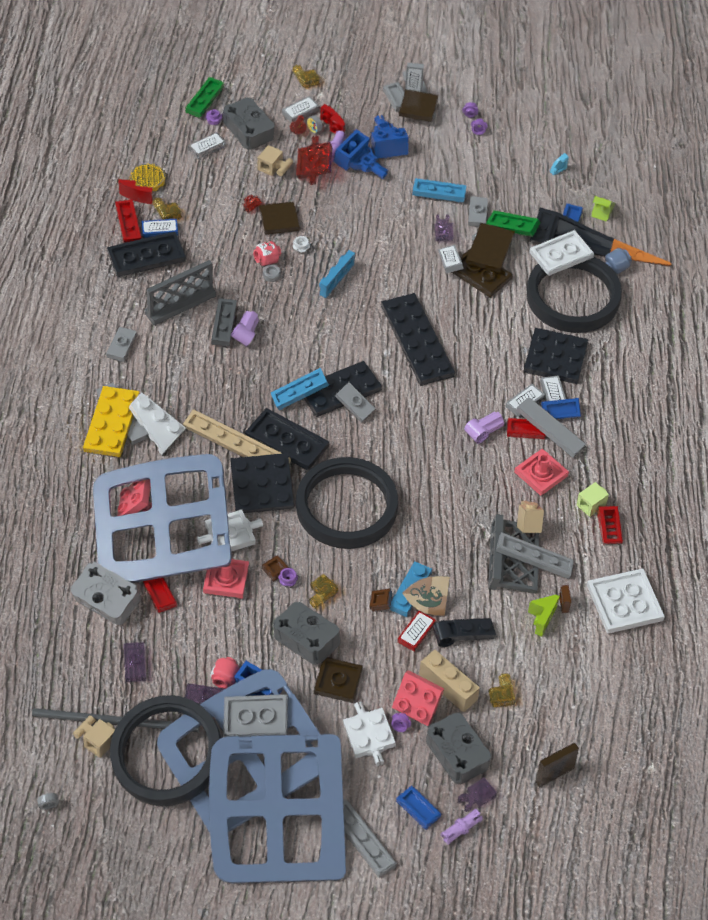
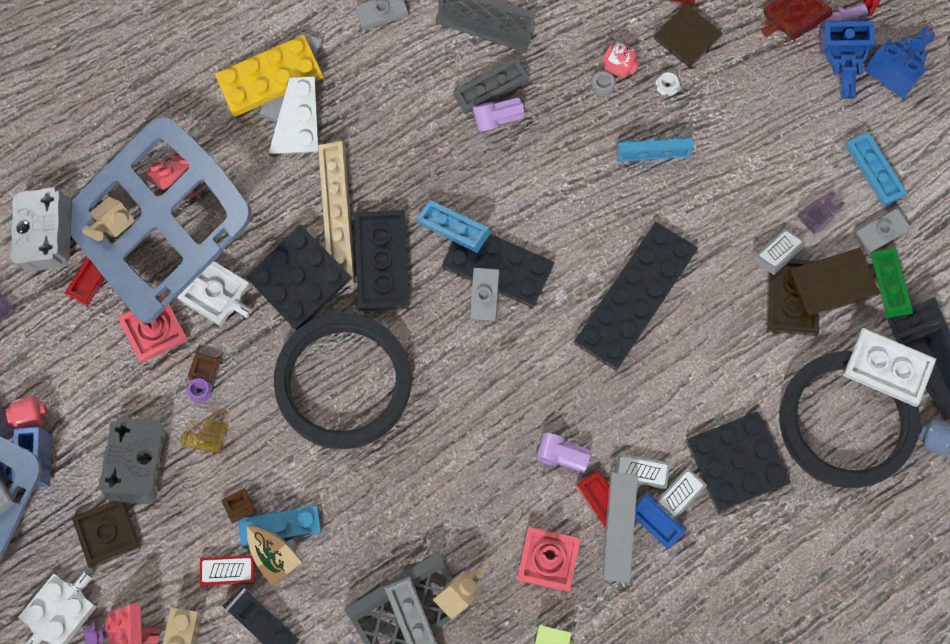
camera: 55 degrees right, 20 degrees up
(137, 547) = (110, 218): none -> tan brick

